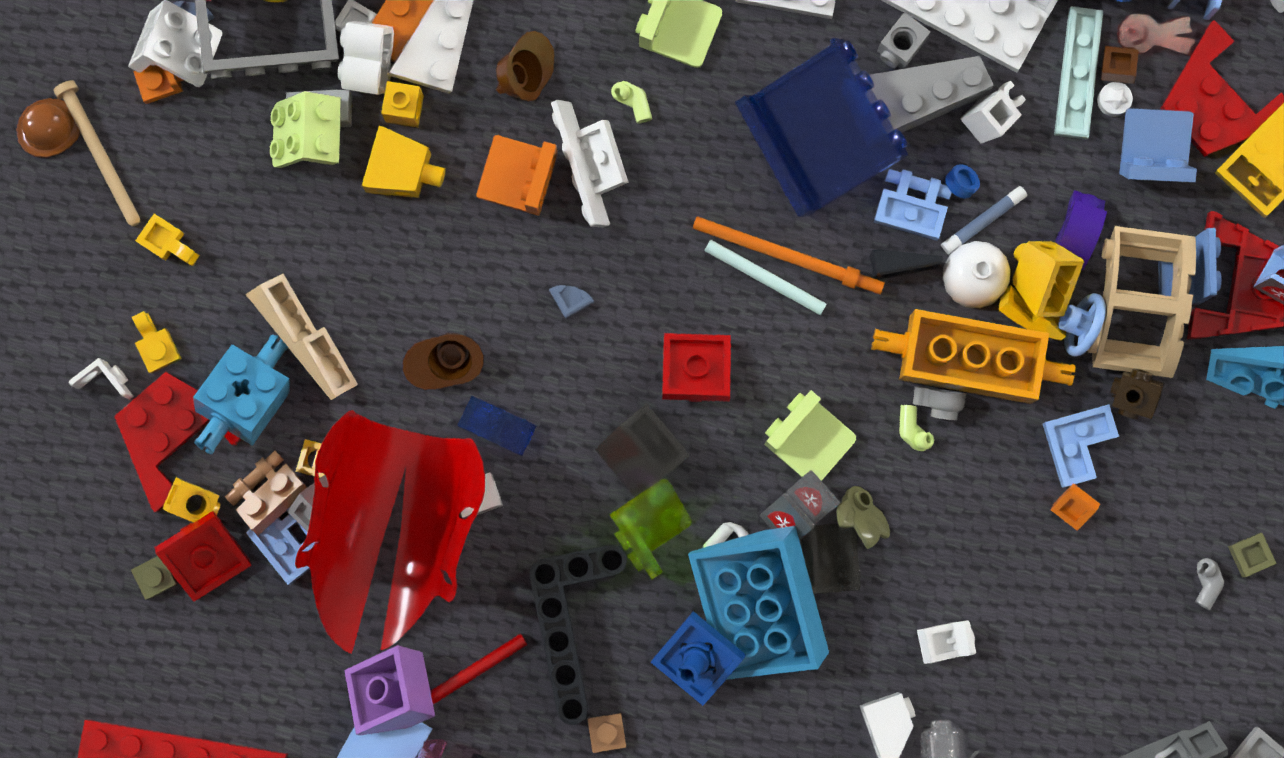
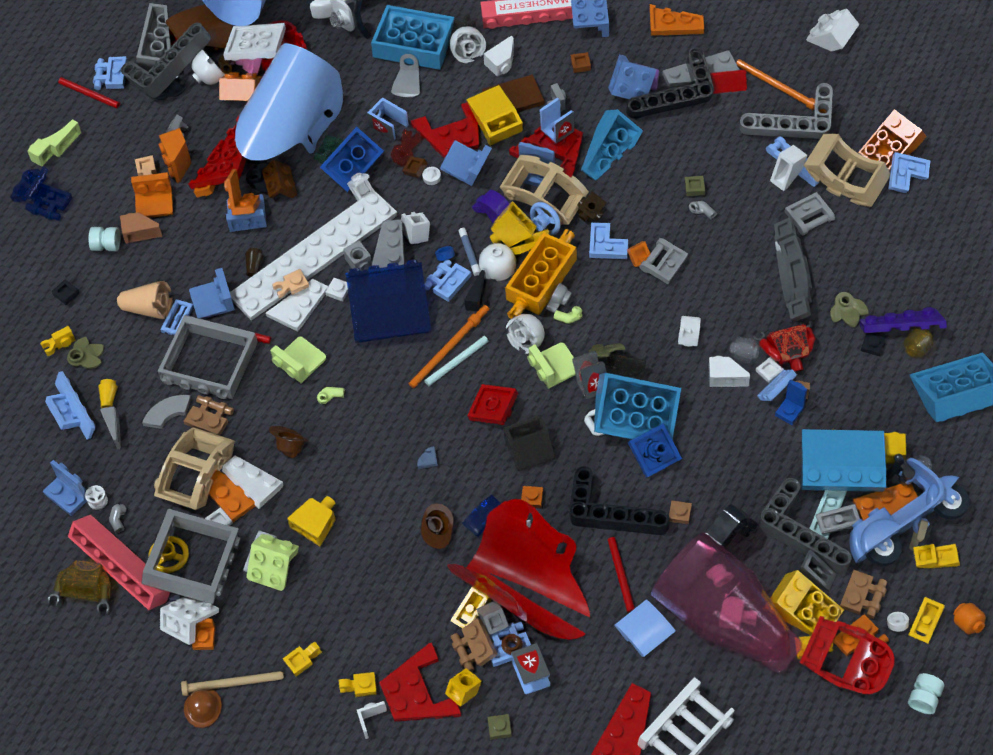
camera: 65 degrees left, 25 degrees down
(202, 556) = (497, 689): red hinge -> none
(246, 414) = (411, 638): dark azure brick -> none
(253, 593) = (530, 668): none -> piece
(270, 551) = (511, 638): none -> reddish brown plate
(310, 346) = (398, 596): tan slope -> none
(366, 57) = (244, 515): white brick -> none
(389, 691) = (615, 610): medium lavender slope -> none
(402, 104) = (279, 506): yellow brick -> none
(517, 174) = (347, 460): orange bracket -> none
(556, 488) = (532, 495): none -> orange plate
(592, 158) = (354, 419): white bracket -> none
(649, 523) = (570, 451): clear neon green bracket -> none
(833, 28) = (337, 289): none -> white plate
(852, 373) = (525, 328): none -> white cylinder
(1075, 564) = (669, 263): none -> light grey plate
(1078, 73) = (410, 187): light aqua tile -> none

